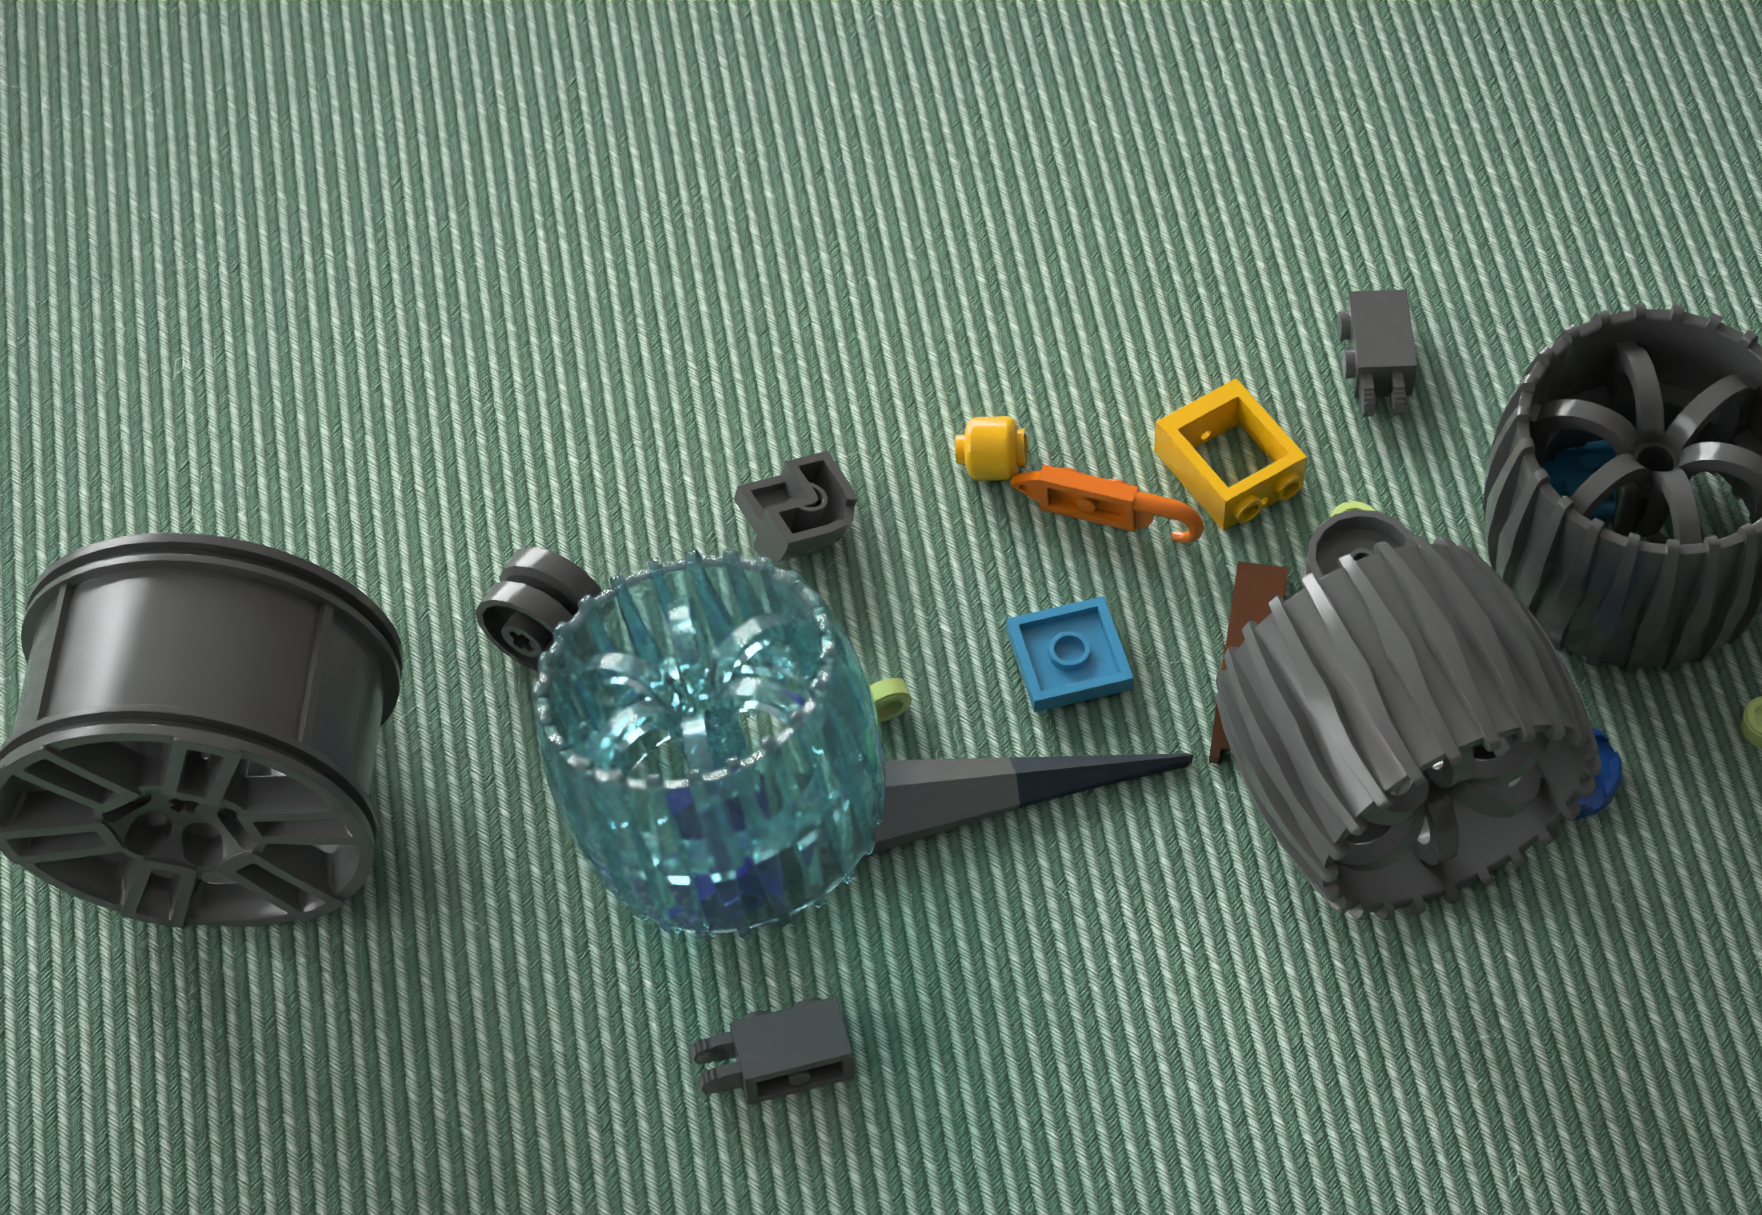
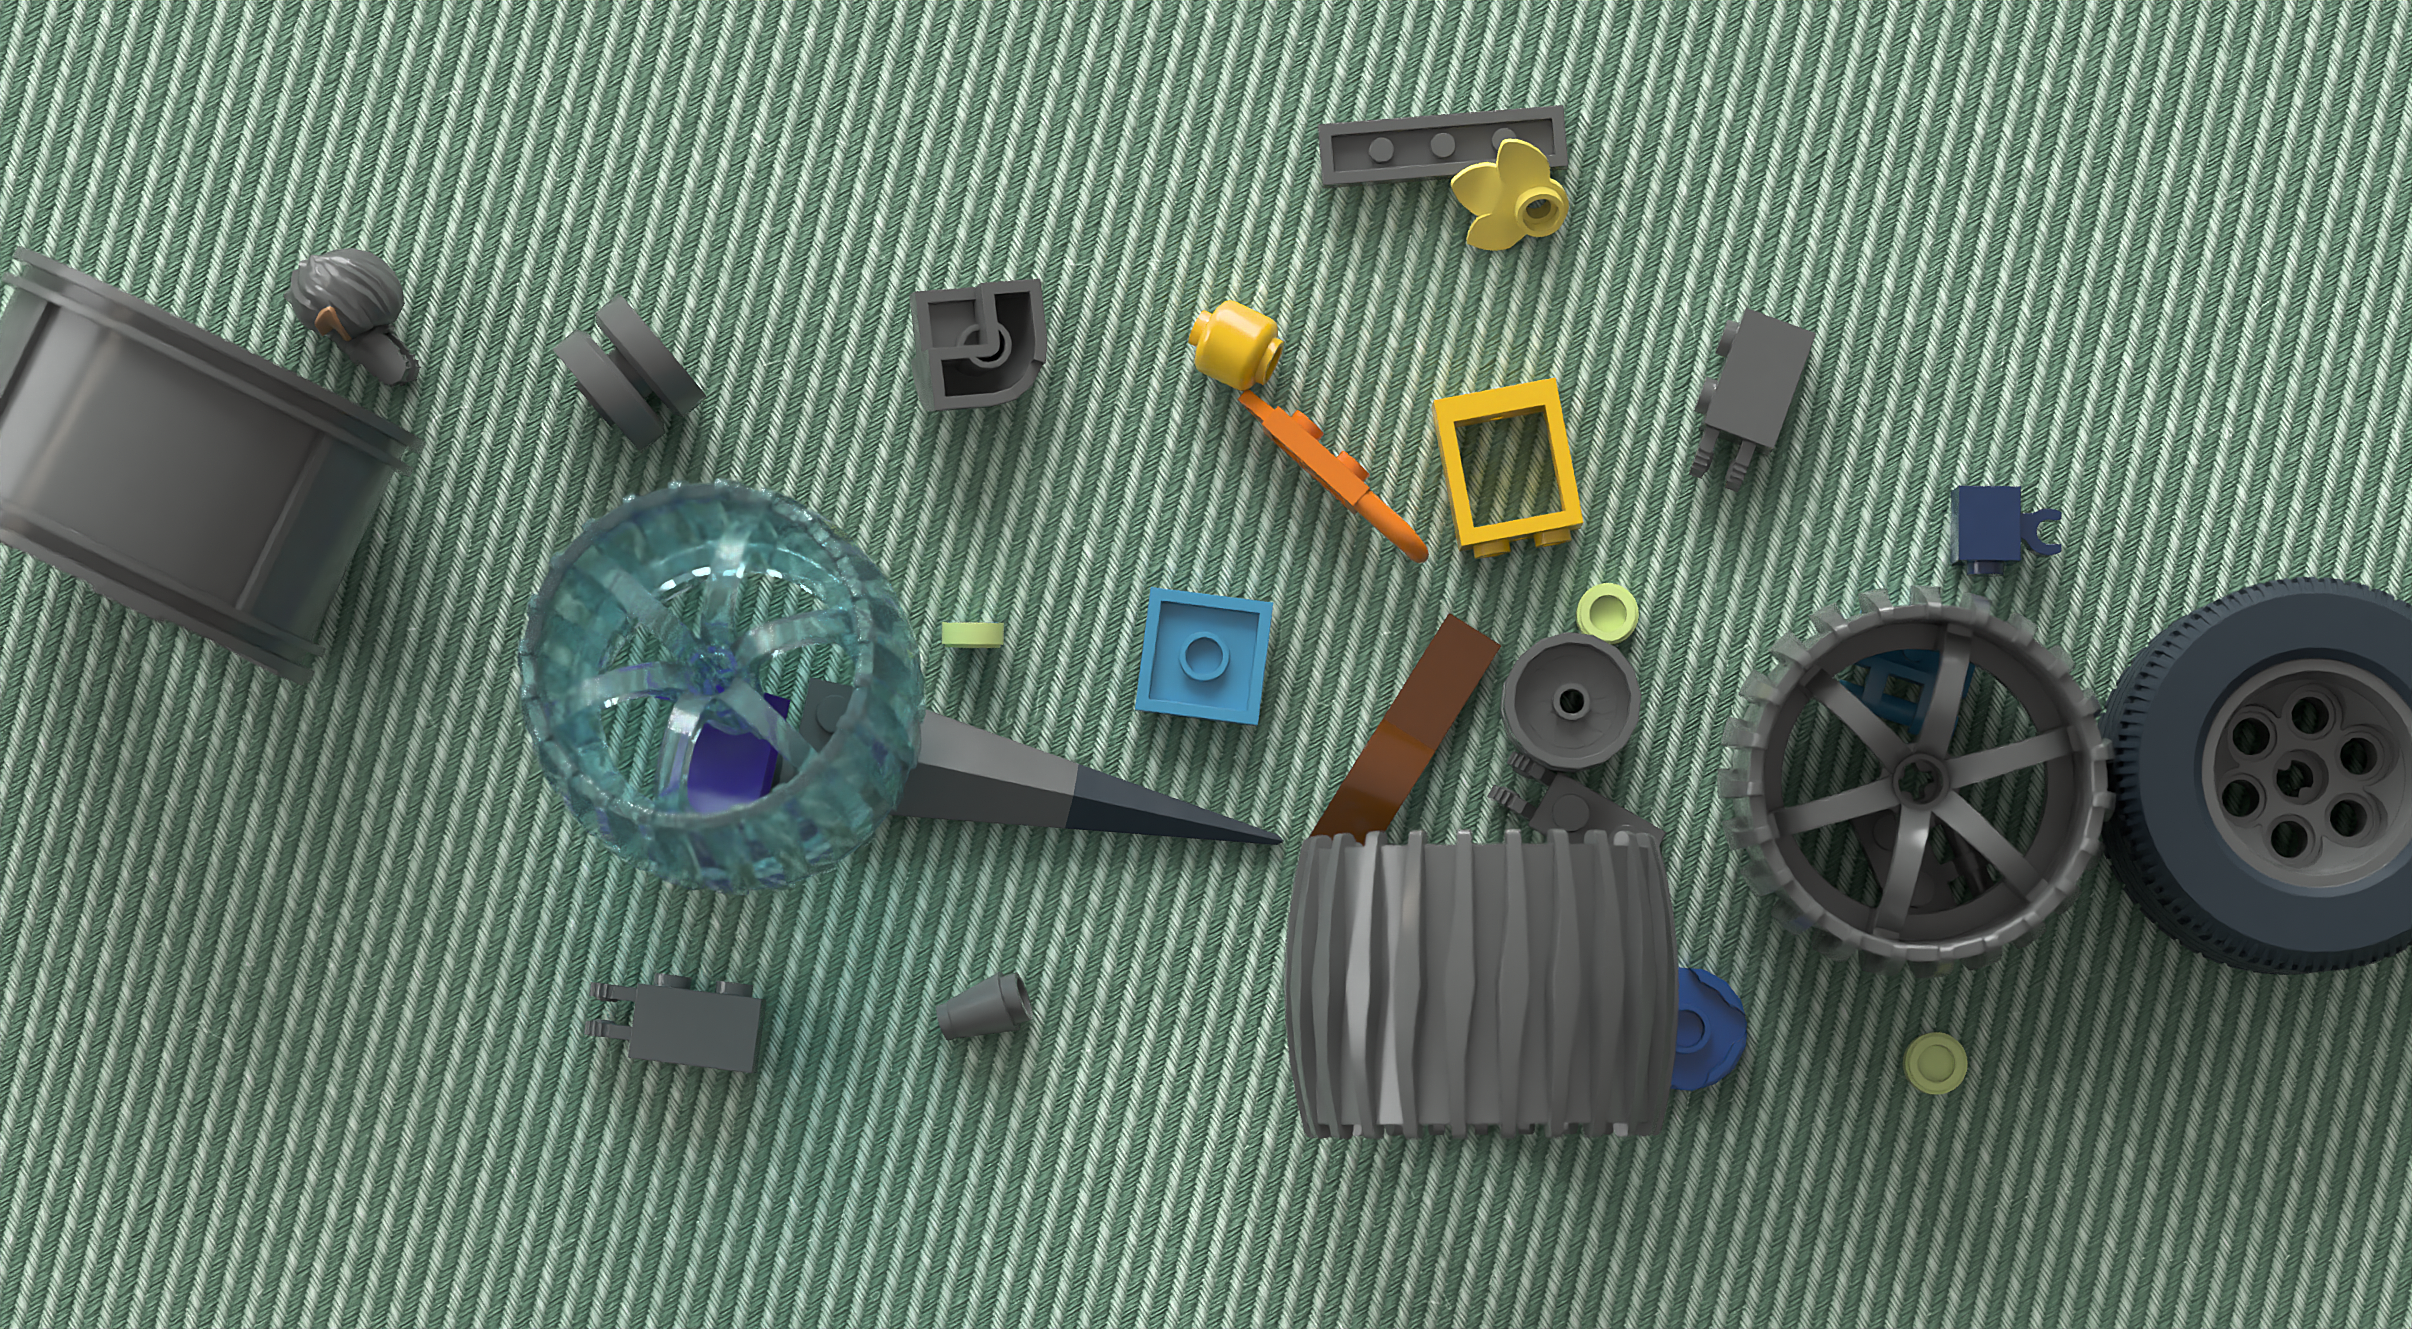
camera: 20 degrees right, 30 degrees up
(1019, 951) = (987, 1008): none -> dark grey cone
(1078, 288) = (1433, 144): none -> dark grey plate
(1136, 296) = (1502, 193): none -> light yellow plate

